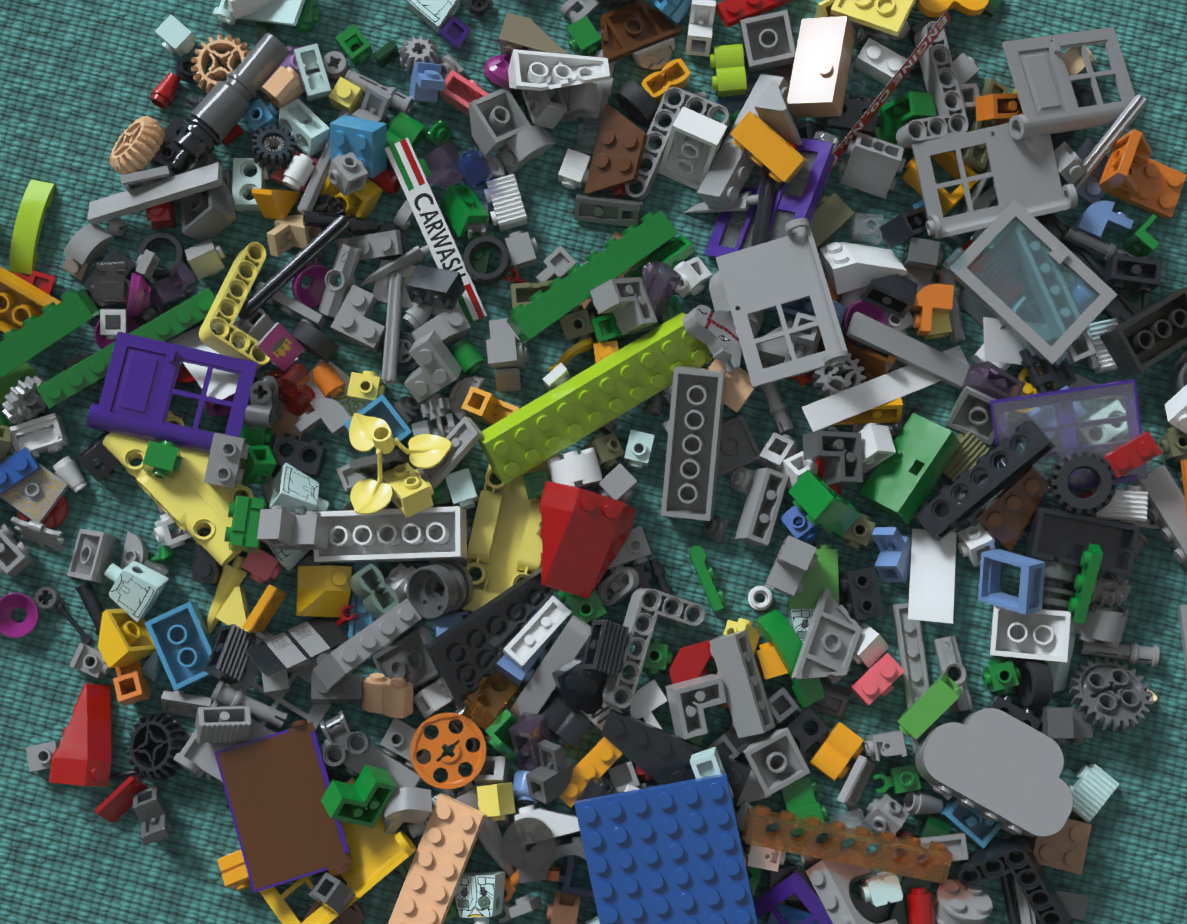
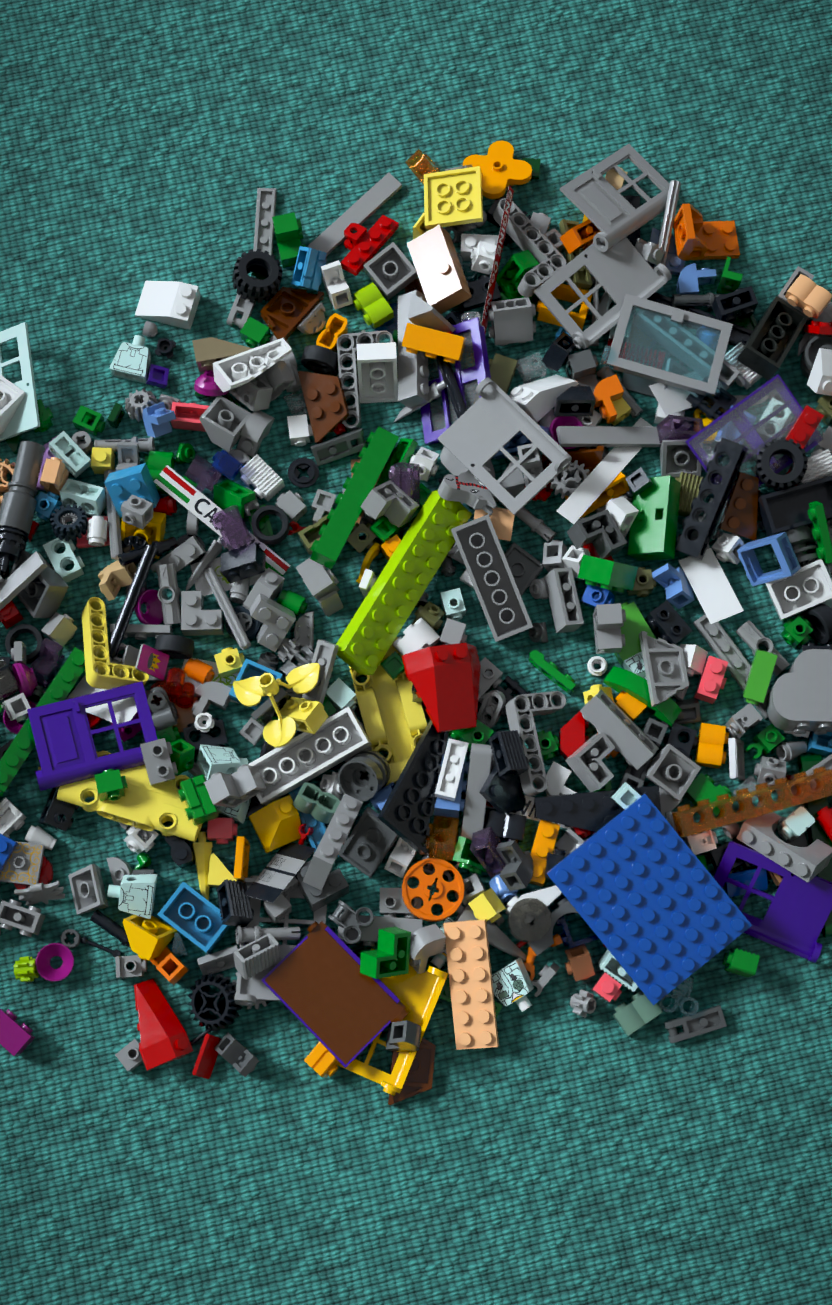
camera: 30 degrees left, 5 degrees down
(275, 202) = (91, 562): light orange slope -> none
(297, 436) = (204, 717): none -> white plate
(387, 696) = (366, 874): light nougat brick -> none
(442, 242) = (231, 527): none -> clear purple brick
(486, 406) = (327, 629): light orange brick -> none
(559, 210) = (303, 464): none -> black gear
(877, 77) = (483, 257): none -> white brick
(914, 418) = (639, 481): none -> plate

